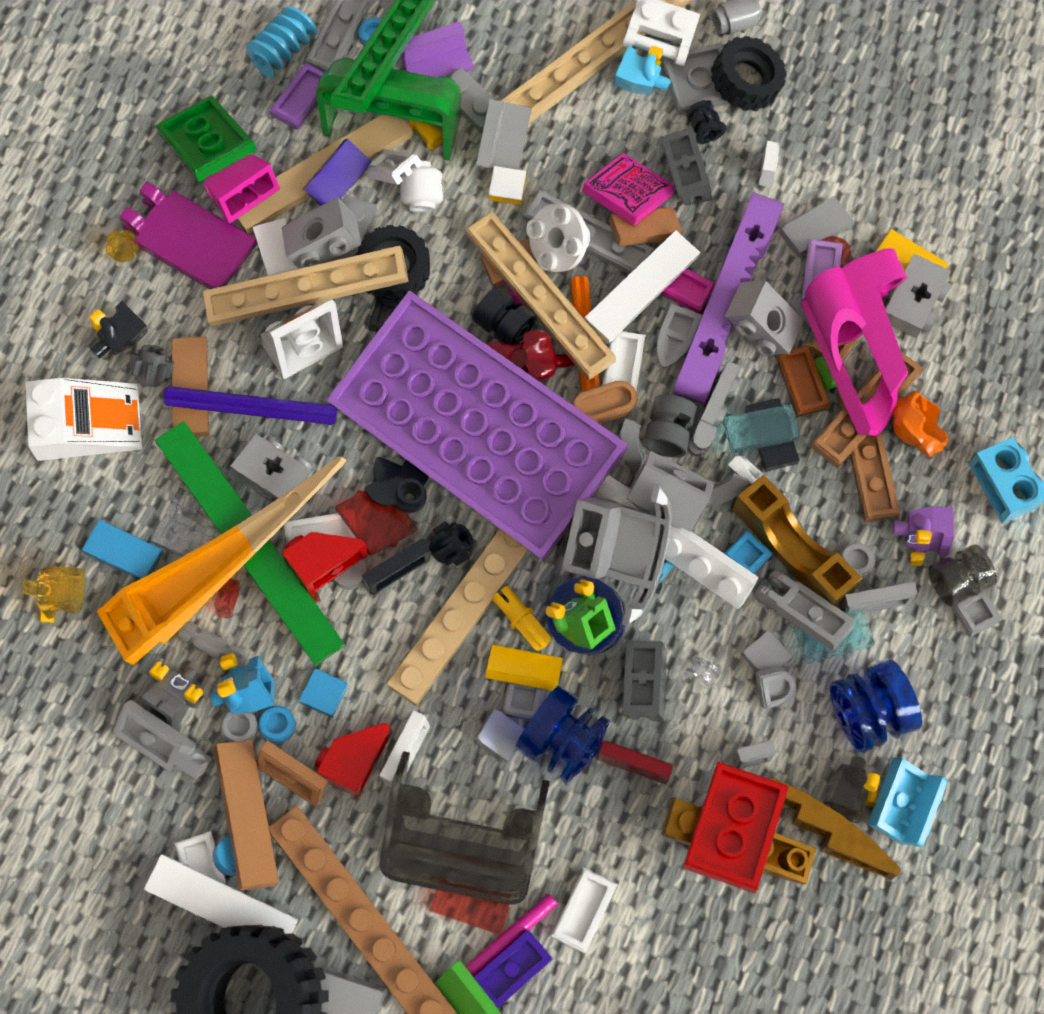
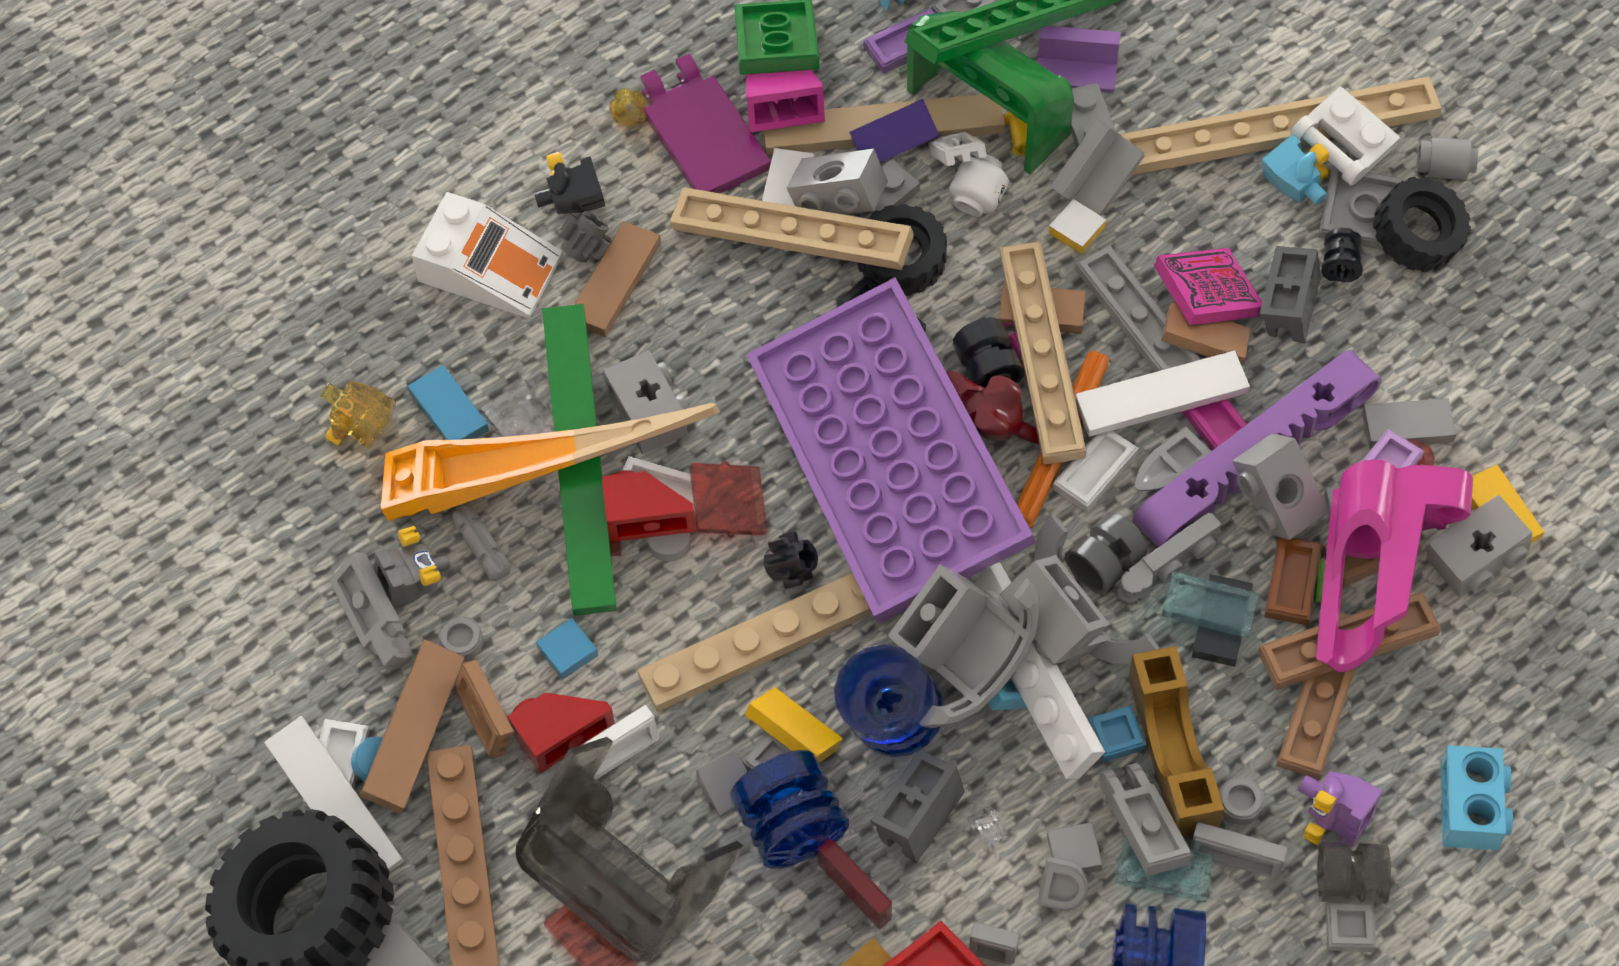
camera: 35 degrees right, 10 degrees down
(227, 598) = (524, 502): clear red tile -> none
(244, 687) = (488, 599): dark azure piece -> none
(249, 405) = (664, 323): dark purple axle -> none
(277, 724) = (500, 656): dark azure tile -> none
(303, 338) = (755, 277): white slope -> none
(396, 481) = (769, 473): black plate -> none
(396, 567) = (718, 556): black tile -> none
(522, 619) = (821, 673): yellow axle -> none
(558, 237) = (1095, 298): white plate -> none
(583, 619) = (873, 691): bright green piece -> none
(607, 401) = (1048, 494): medium nougat tile -> none
(745, 468) = (1160, 627): white tile -> none
(769, 163) = (1389, 330): white tile -> none
(917, 424) = (1399, 685): orange hair -> none

